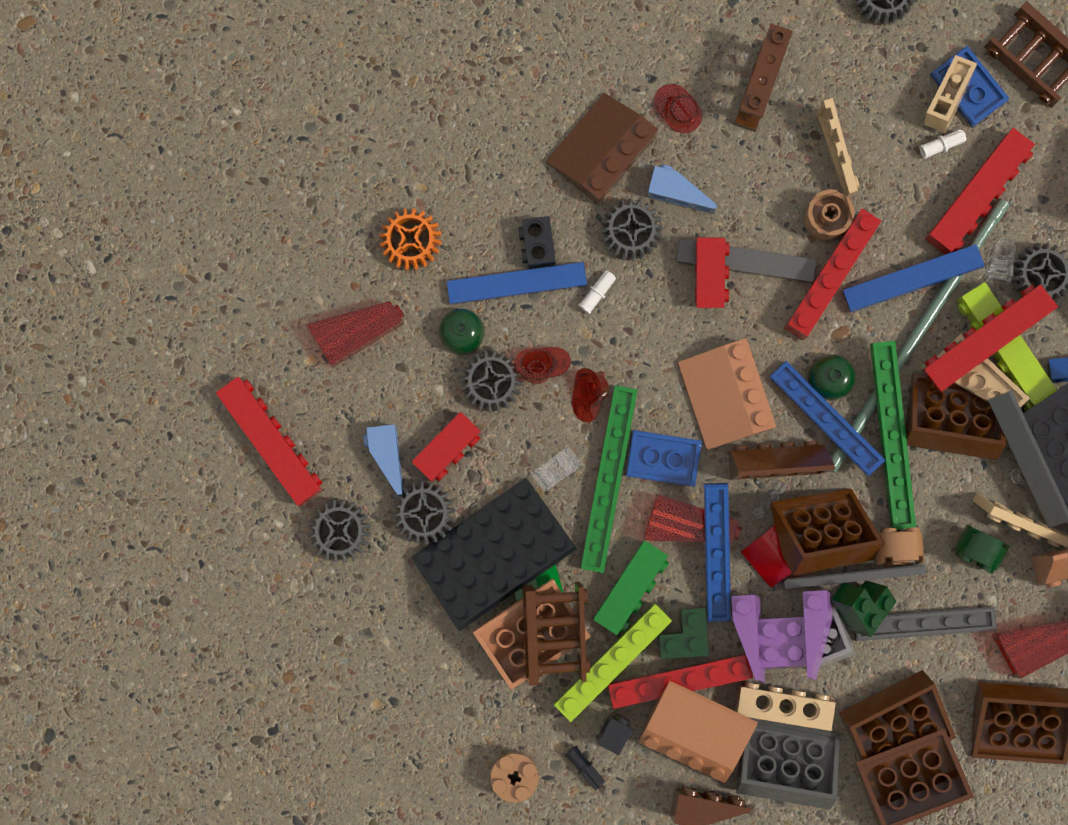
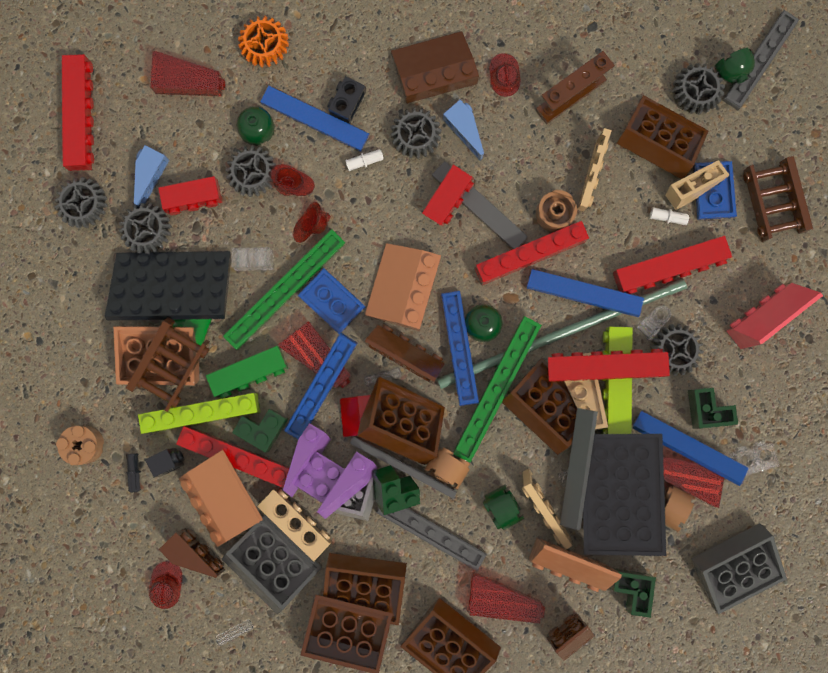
camera: 30 degrees right, 0 degrees up
(883, 67) = (663, 137): none -> reddish brown slope

